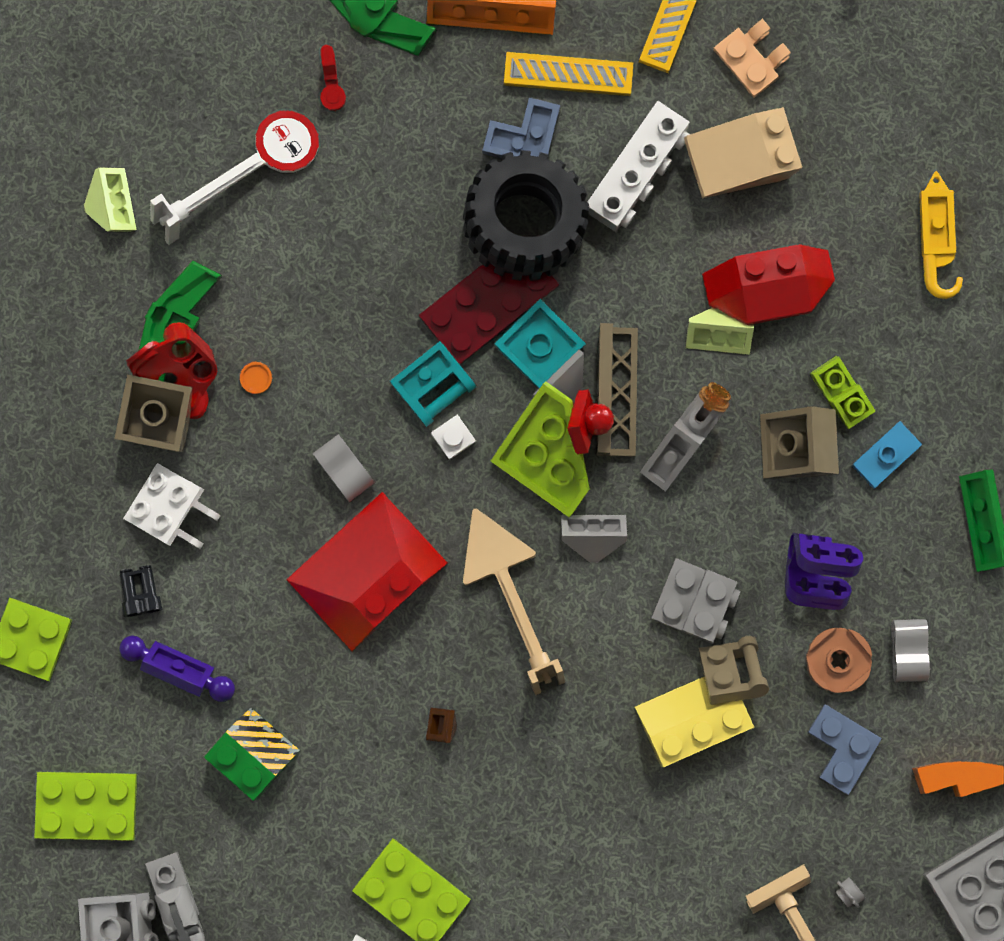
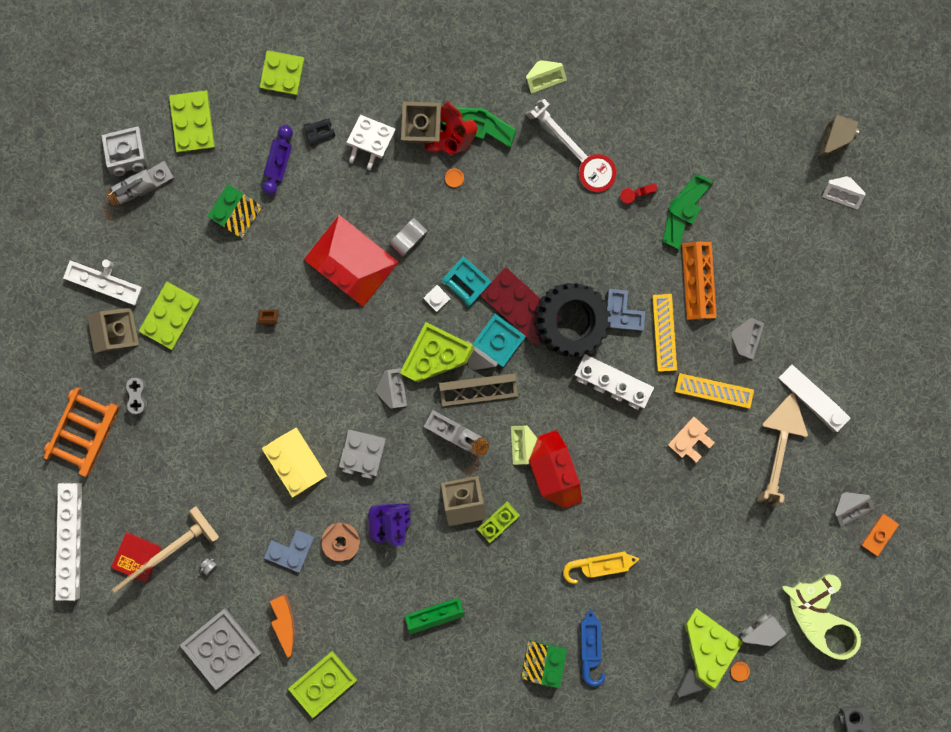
camera: 85 degrees right, 5 degrees up
(493, 552) = (372, 332): tan piece -> none
(588, 420) = (455, 374): red tile -> none
(722, 673) = (322, 474): dark tan plate -> none
(743, 153) = (630, 442): tan slope -> none
(886, 454) = (465, 553): dark azure plate -> none
(910, 650) = (352, 582): light grey axle -> none

